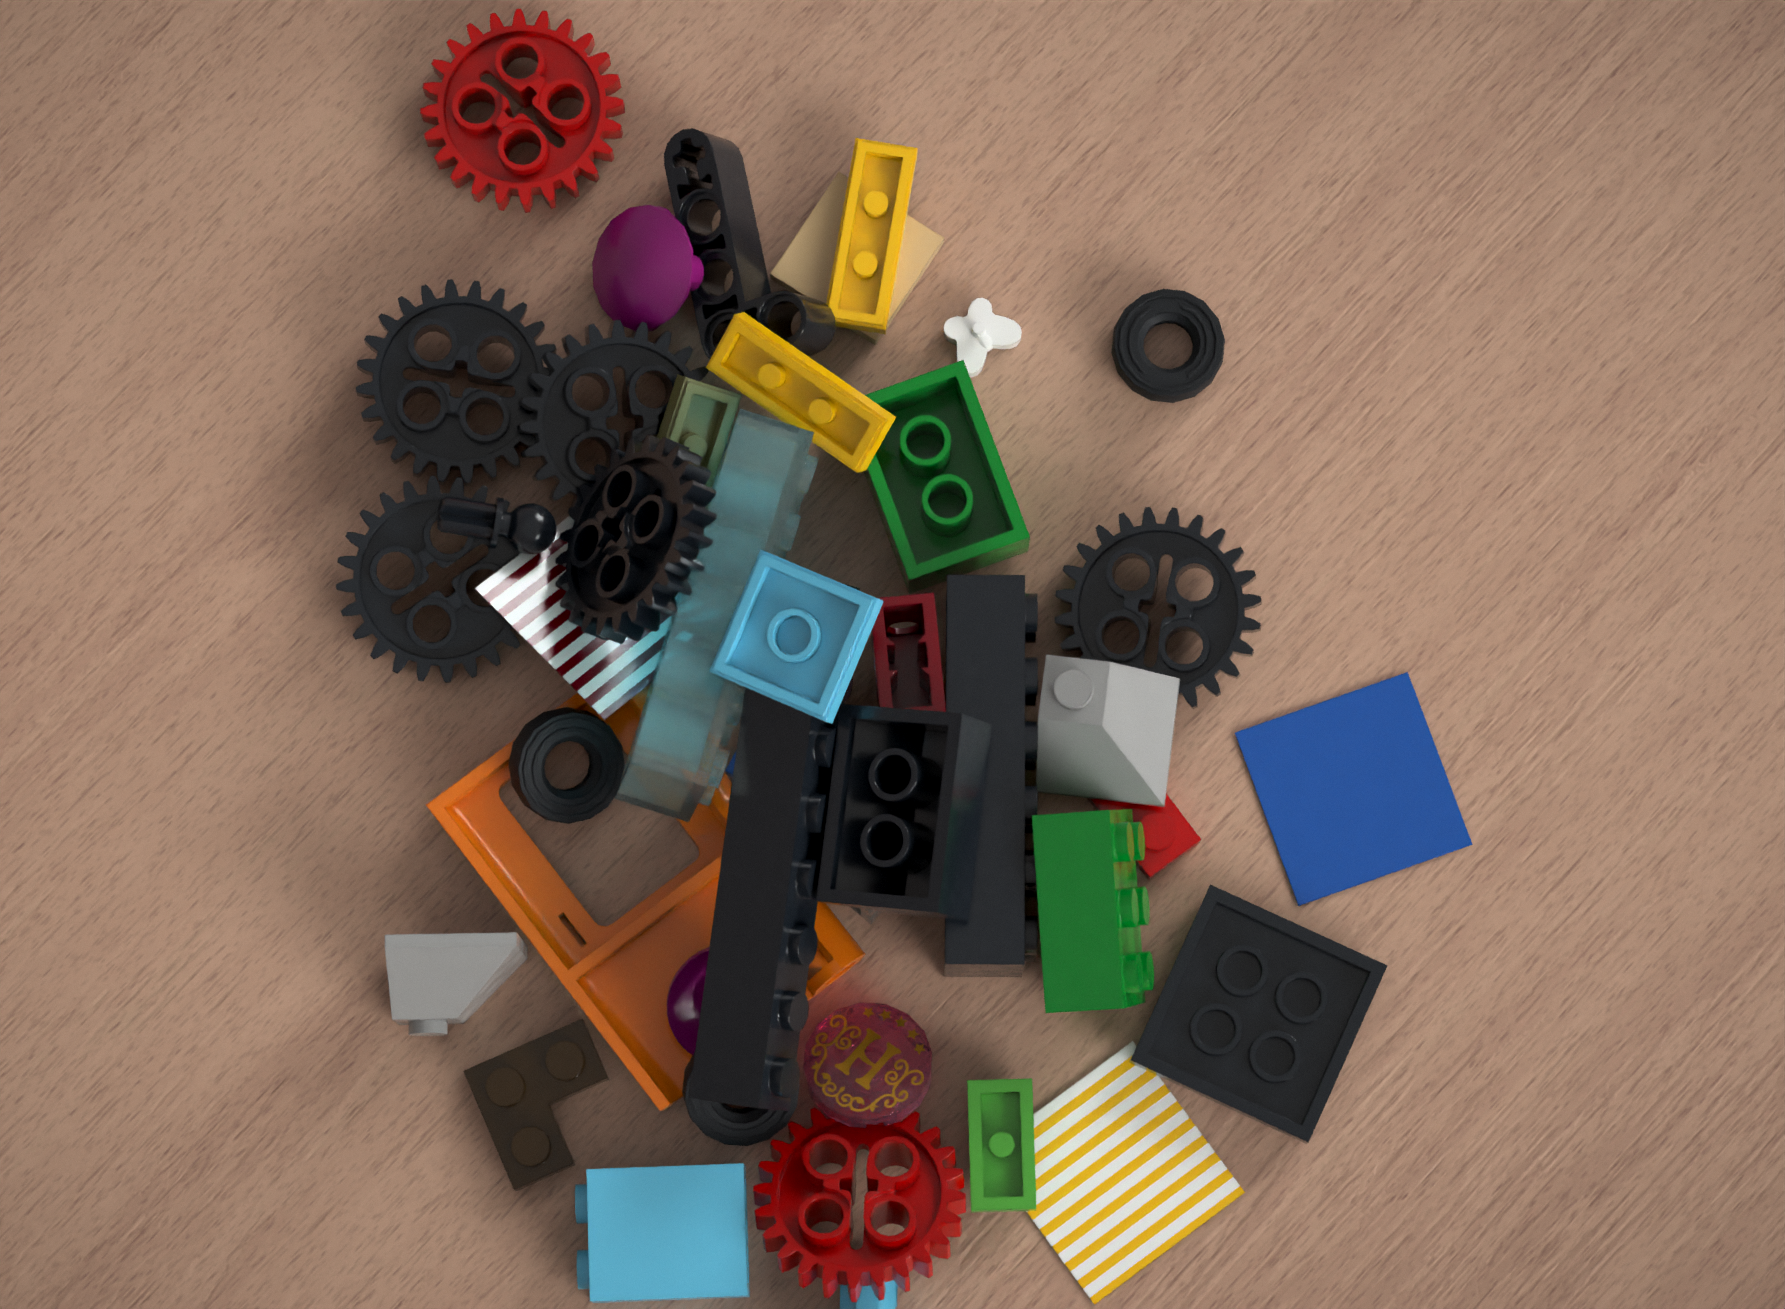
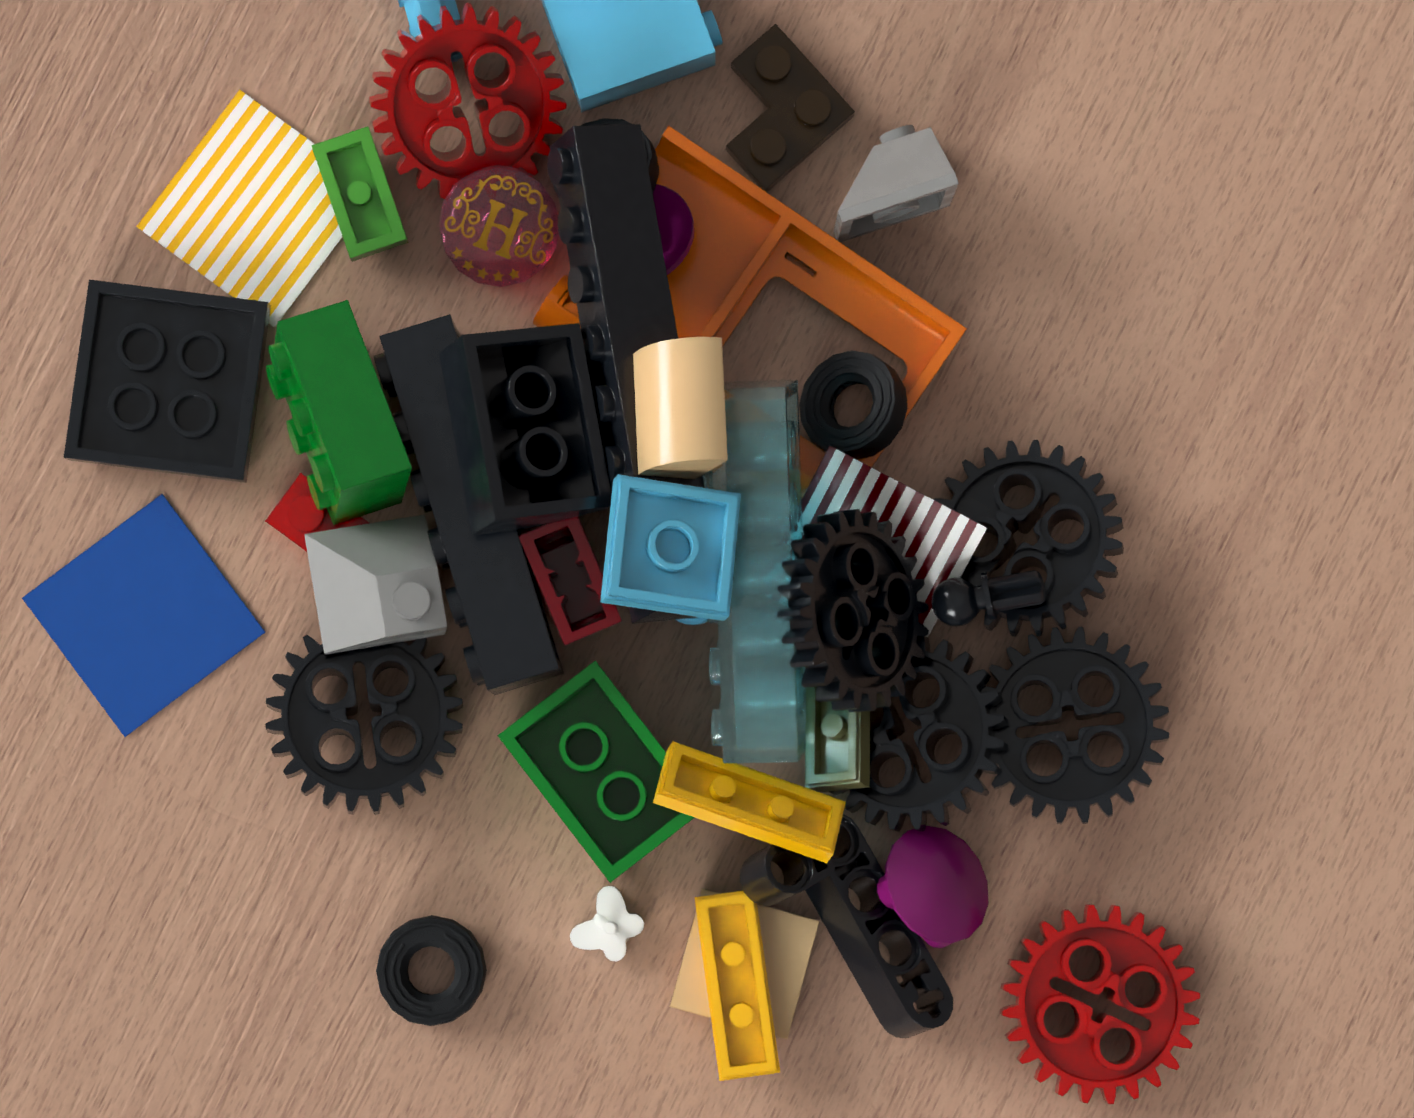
camera: 160 degrees right, 5 degrees up
(741, 775) = (680, 407): none -> tan brick

